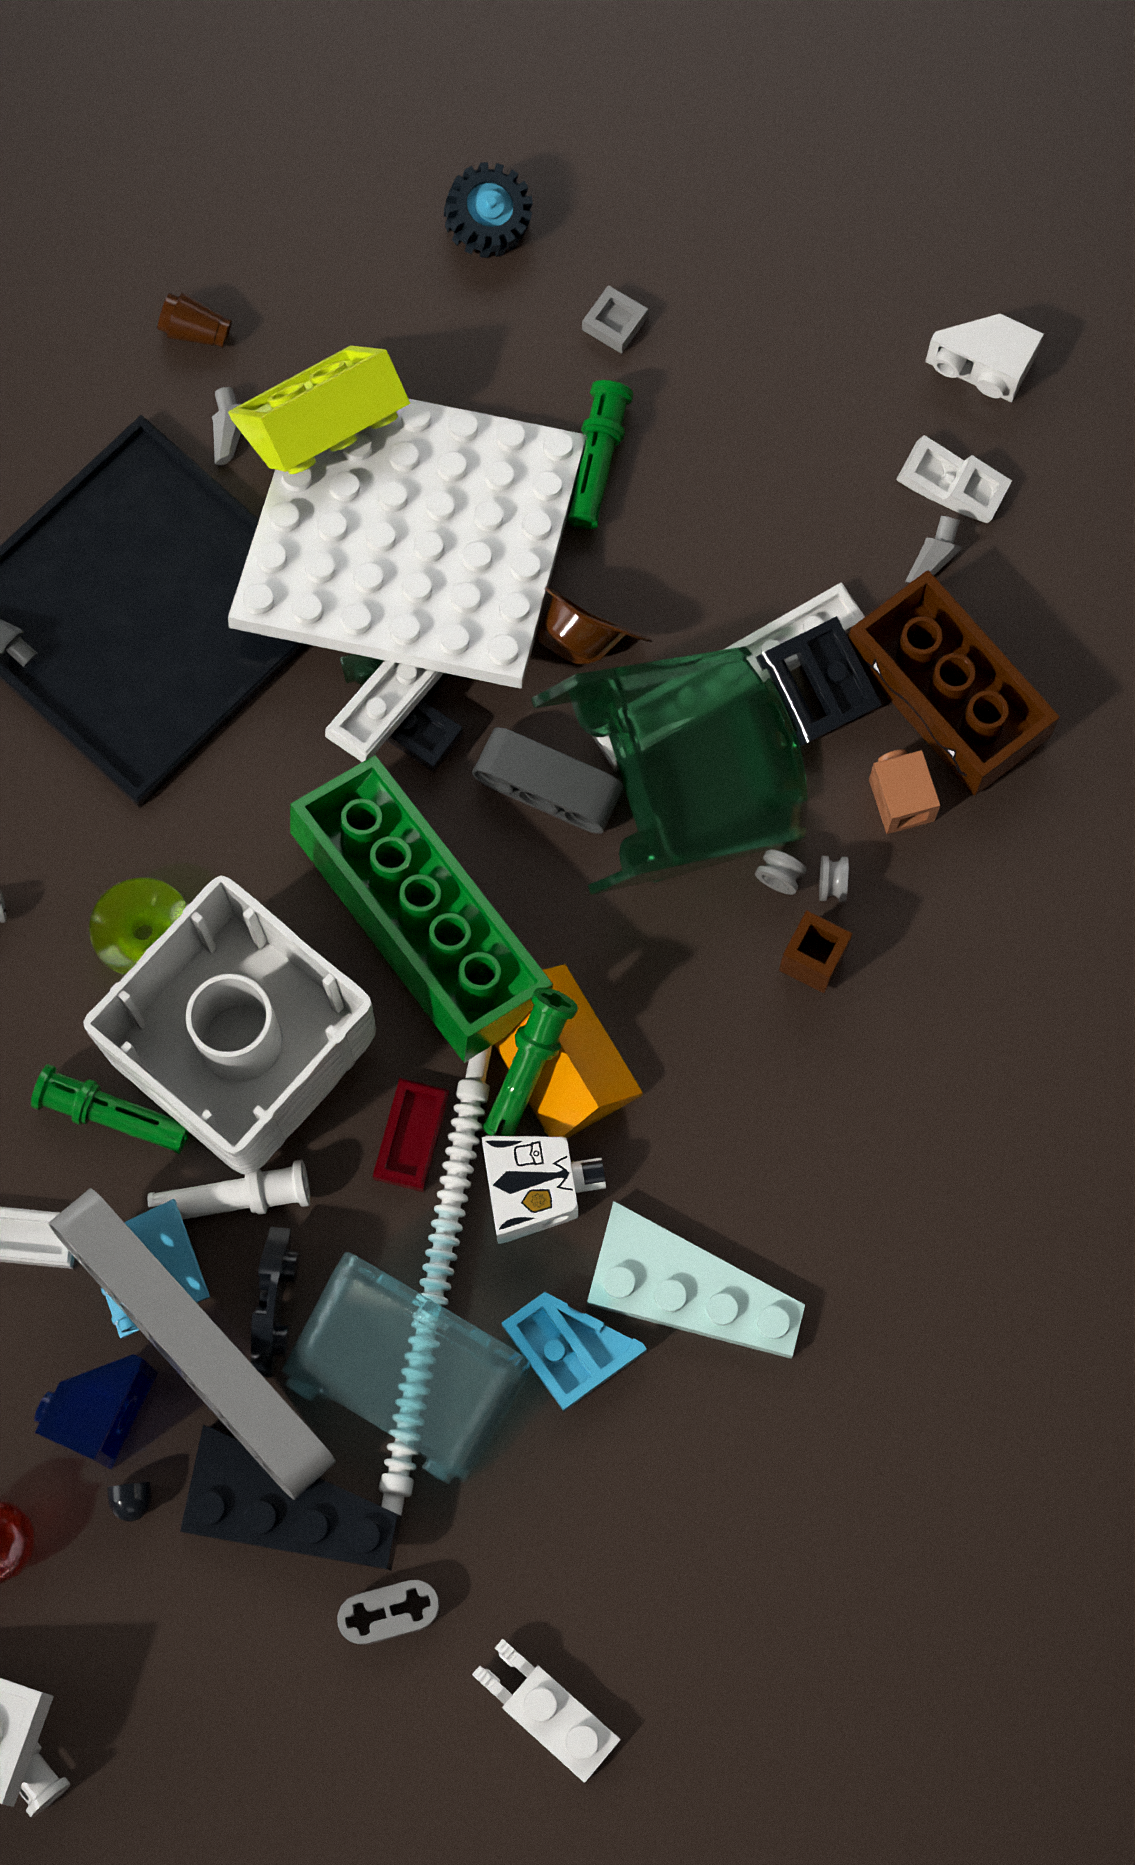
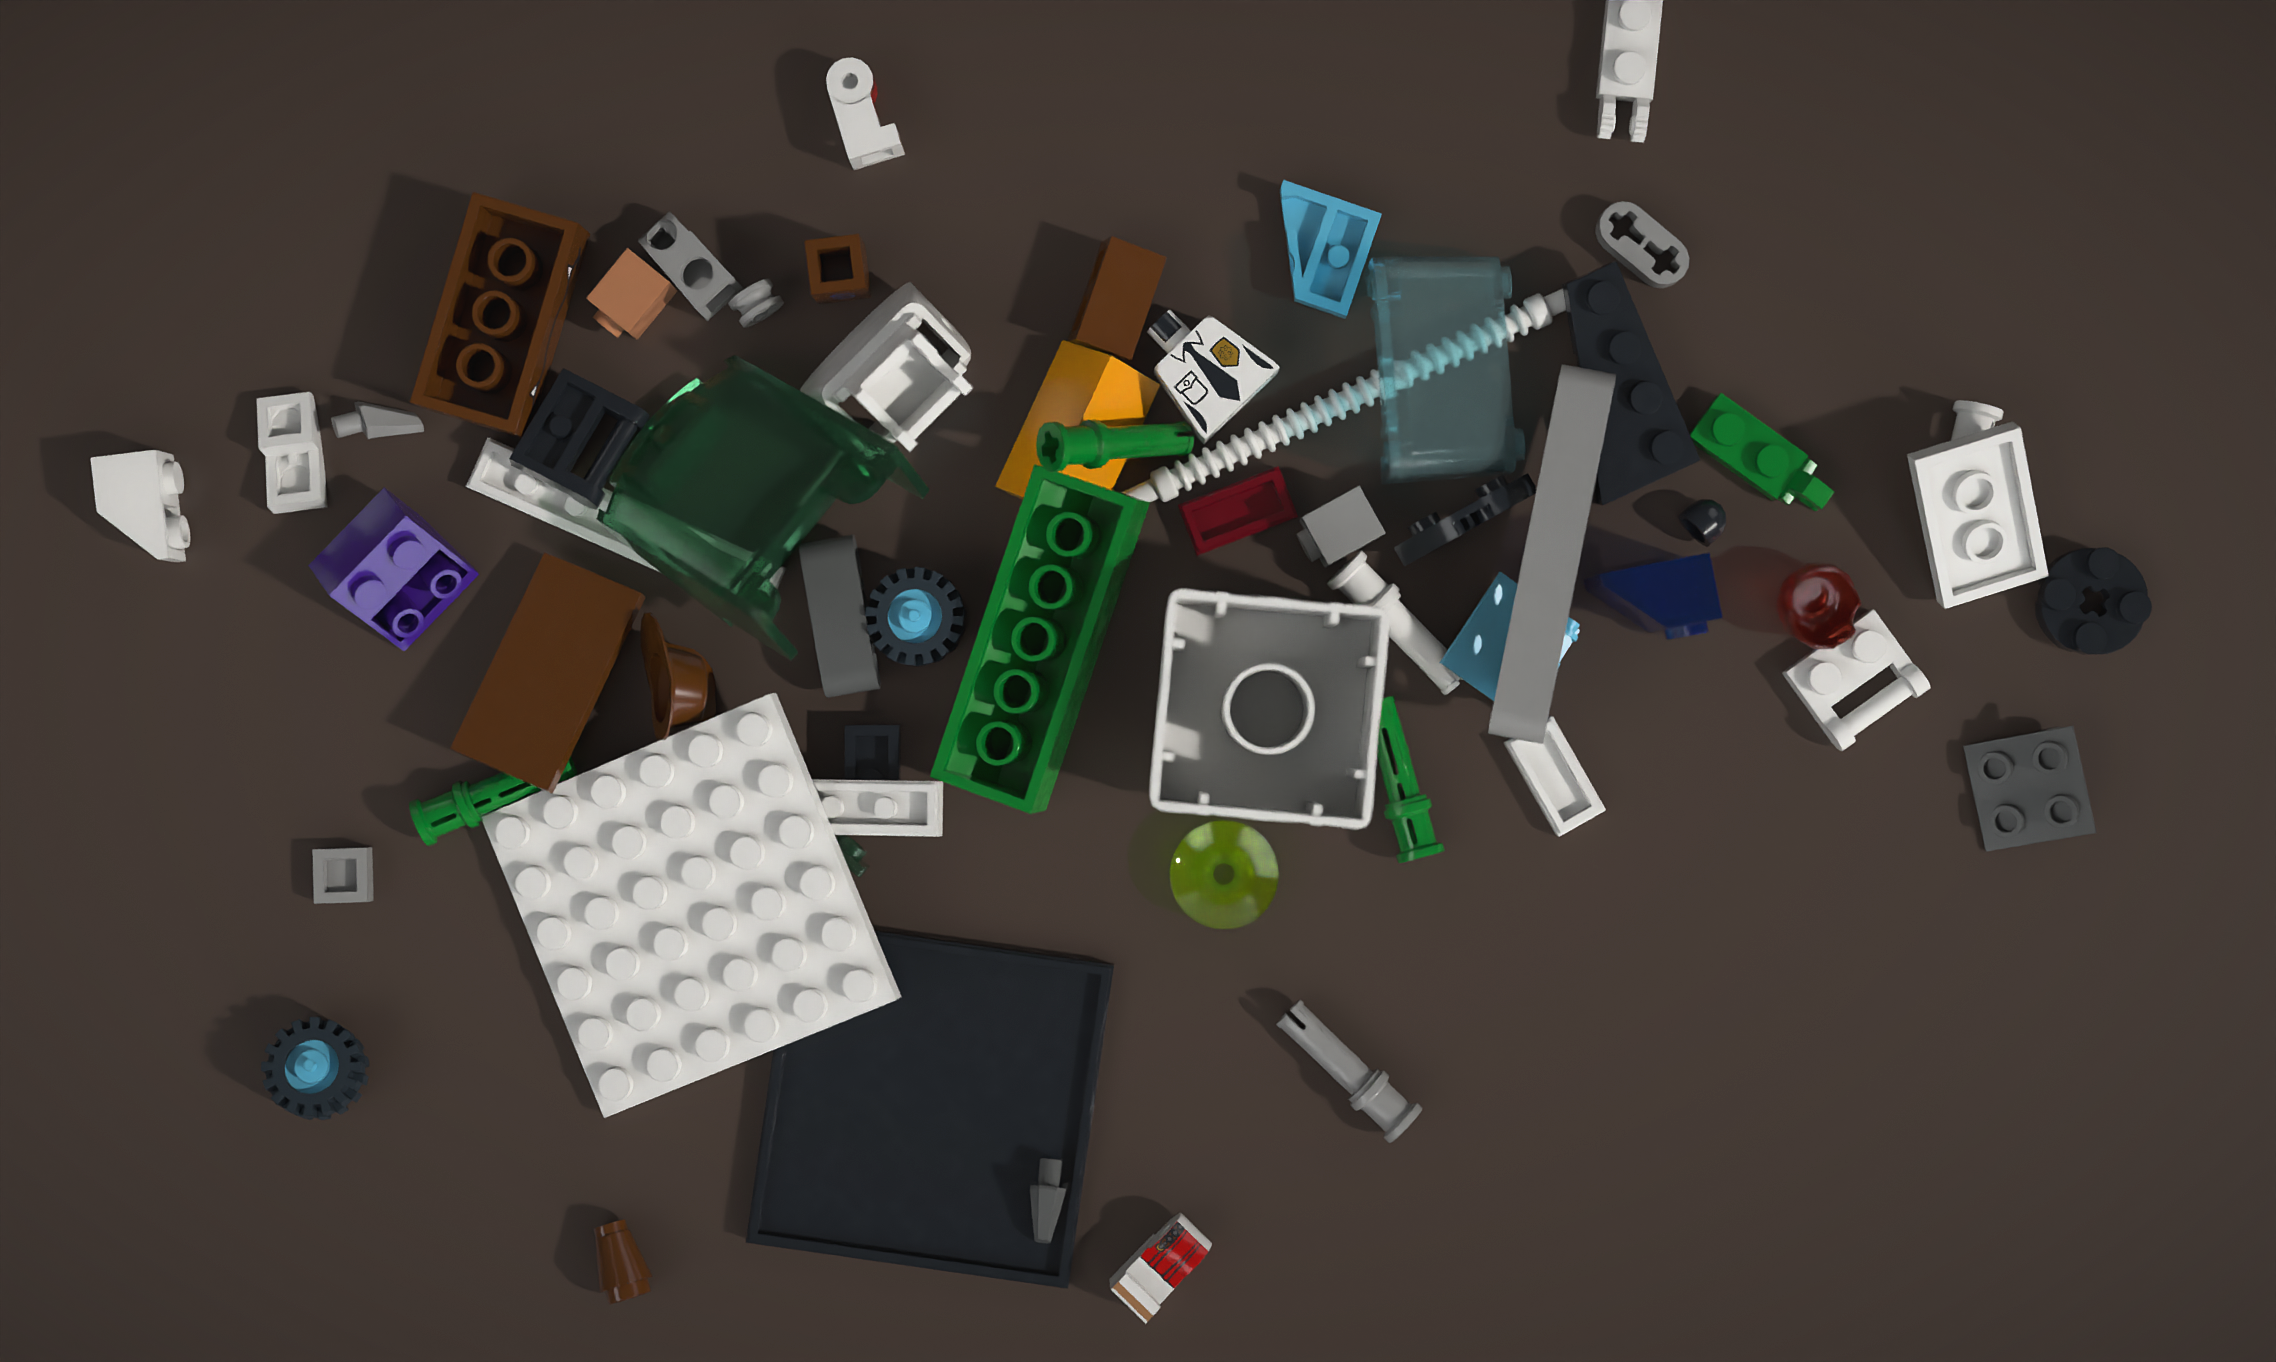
camera: 125 degrees left, 15 degrees up
(150, 1585) = (1758, 454): none -> green hinge
(225, 431) = (699, 1156): light grey bar -> none
(322, 408) = (631, 1069): neon yellow slope -> none
(338, 1200) = (1339, 528): none -> light grey brick
(505, 832) = (915, 616): none -> black wheel
(643, 1152) = (1117, 298): none -> reddish brown hinge
(656, 544) = (548, 672): none -> reddish brown tile
(678, 1285) = (1207, 197): light aqua wing -> none
(699, 923) = (895, 367): none -> white piece
(780, 872) = (782, 352): light grey bush -> none
(814, 489) = (392, 570): none -> dark purple slope
(897, 848) = (690, 266): none -> light grey leg
(930, 1052) = (853, 99): none -> white leg

